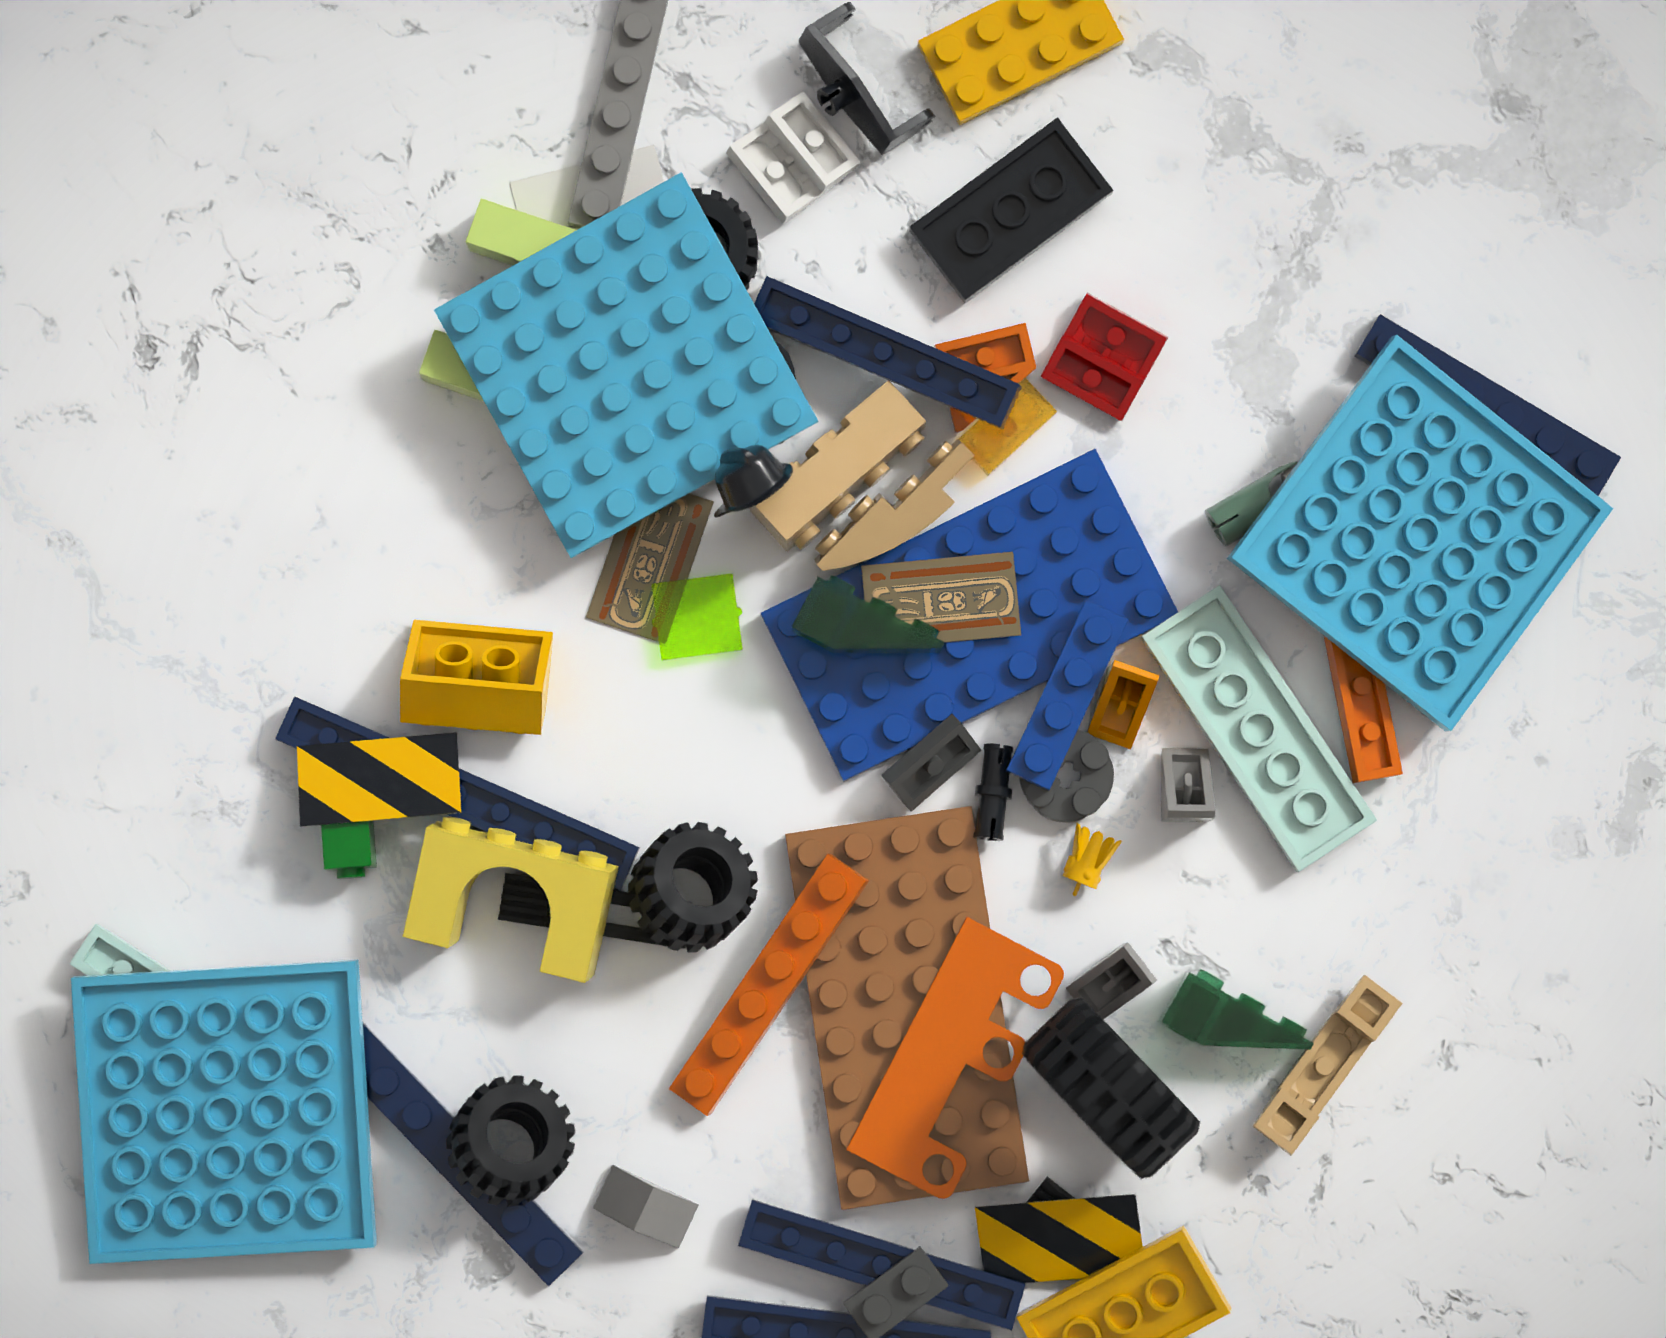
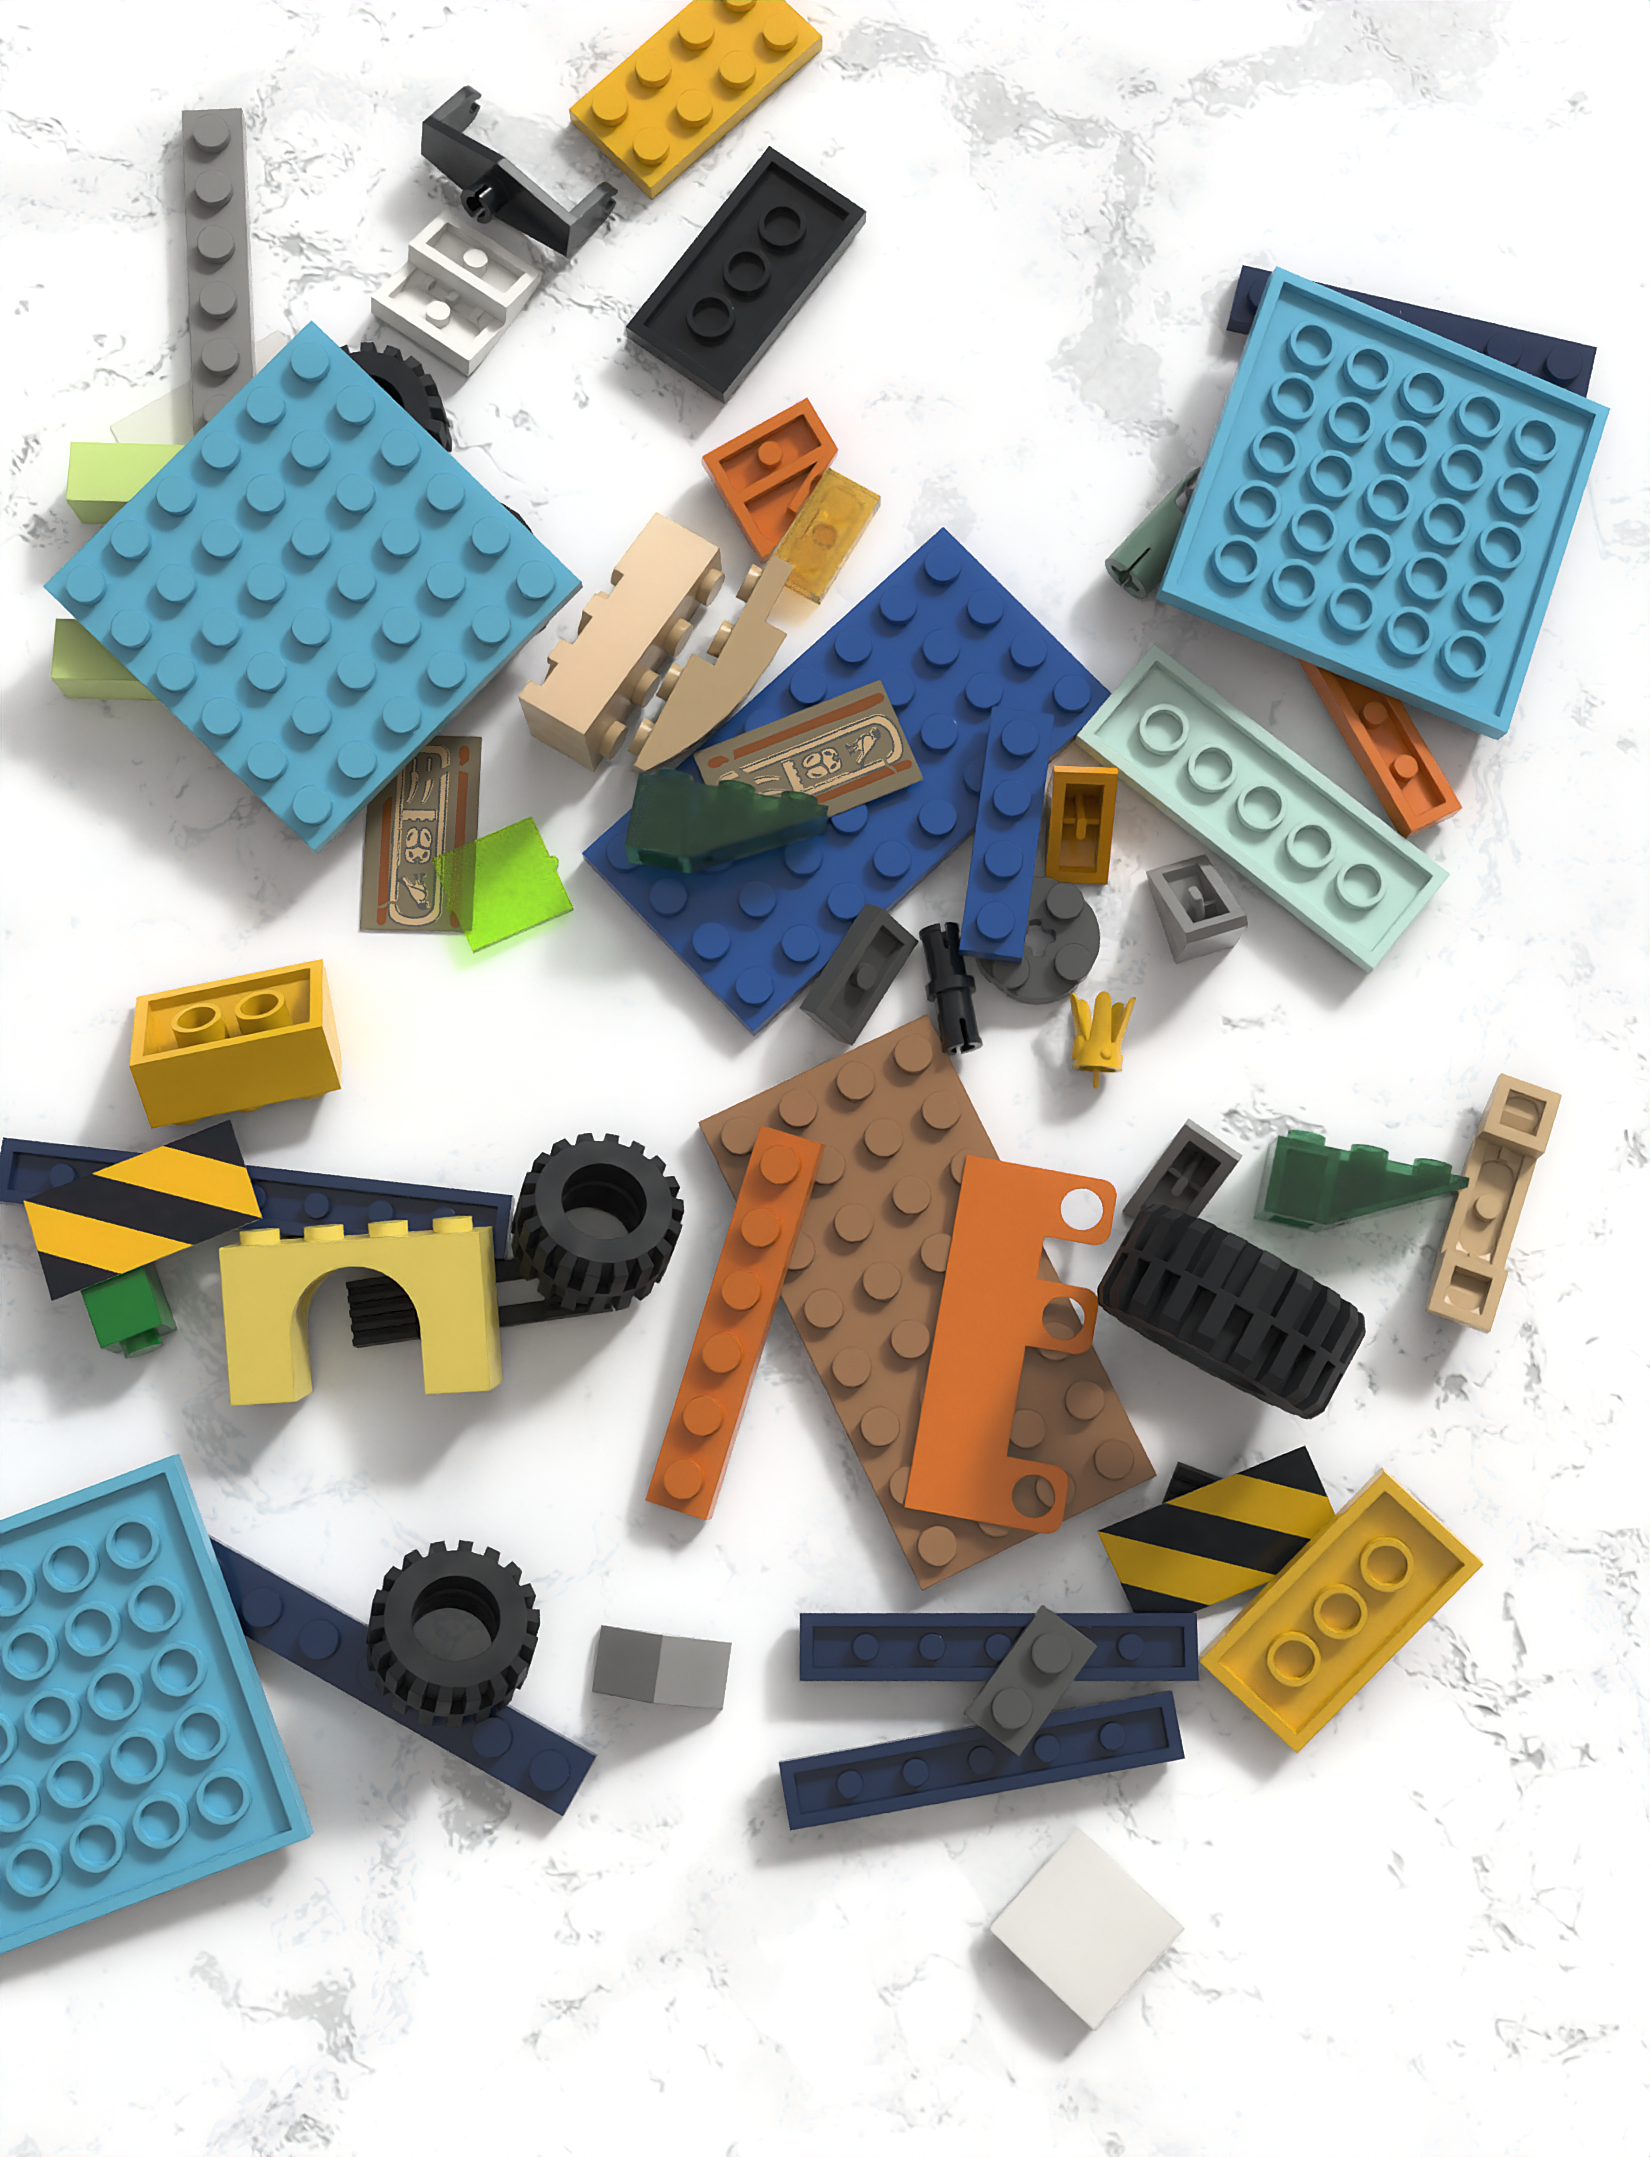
camera: 15 degrees left, 5 degrees down
(748, 478) = (507, 668): black piece -> none
(886, 353) = (649, 481): dark blue plate -> none
(1104, 356) = (918, 415): red slope -> none

